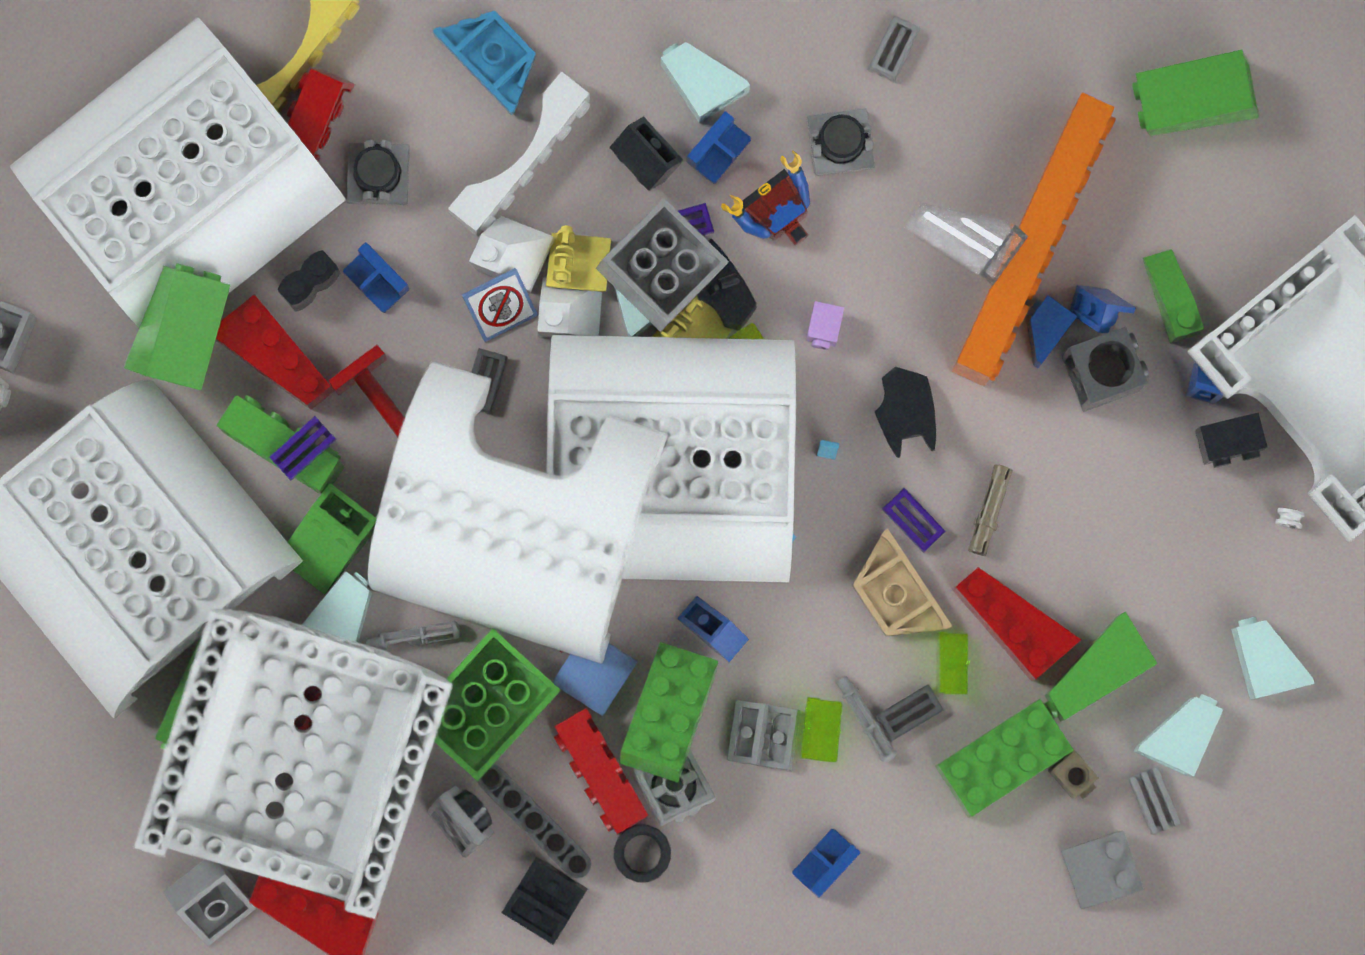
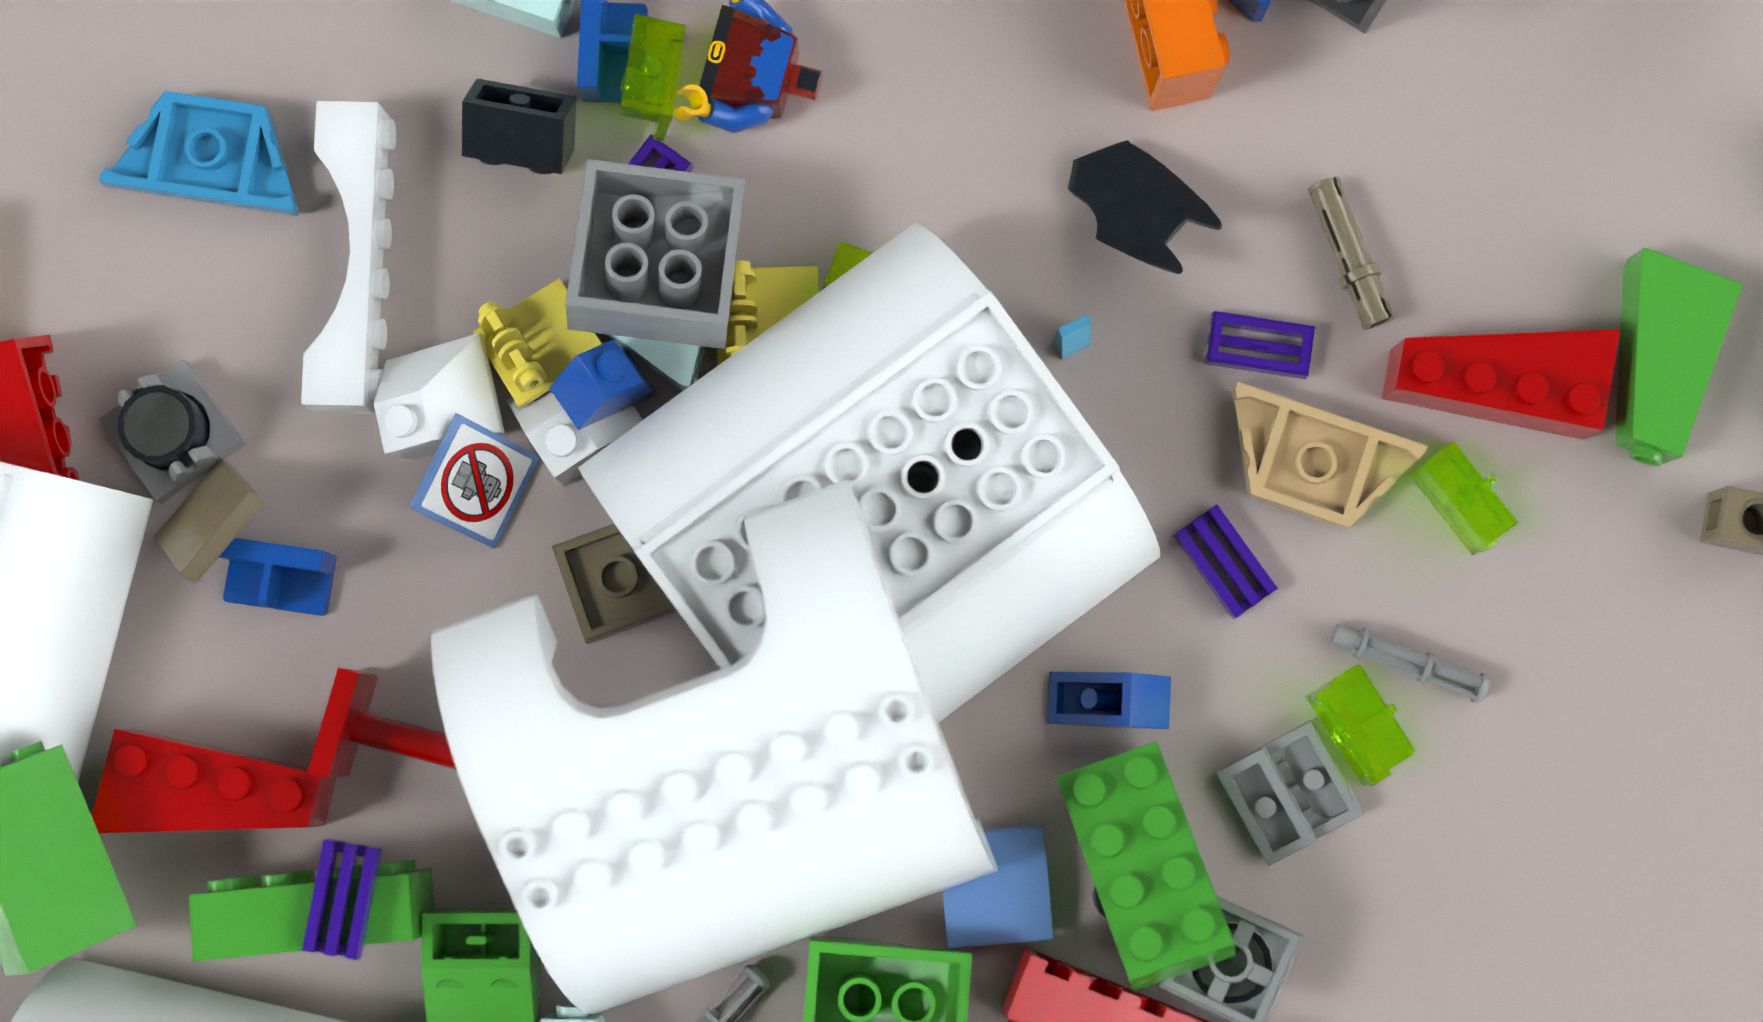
camera: 30 degrees left, 0 degrees up
(315, 275) = (181, 661): black brick -> none
(365, 229) = (208, 520): none -> dark tan tile
(498, 377) = (520, 561): dark grey tile -> none
(525, 399) = (608, 584): none -> dark tan tile
(591, 305) = (600, 384): none -> blue slope
(726, 176) = (652, 72): none -> clear neon green panel
(729, 295) = (782, 235): black shield -> none
(818, 581) = (1240, 548): none -> dark purple tile
(824, 325) = (938, 174): lavender brick -> none
(825, 862) = (1515, 902): blue panel -> none
(887, 725) = (1440, 599): dark grey tile -> none
(1004, 758) = (1639, 570): bright green brick -> none

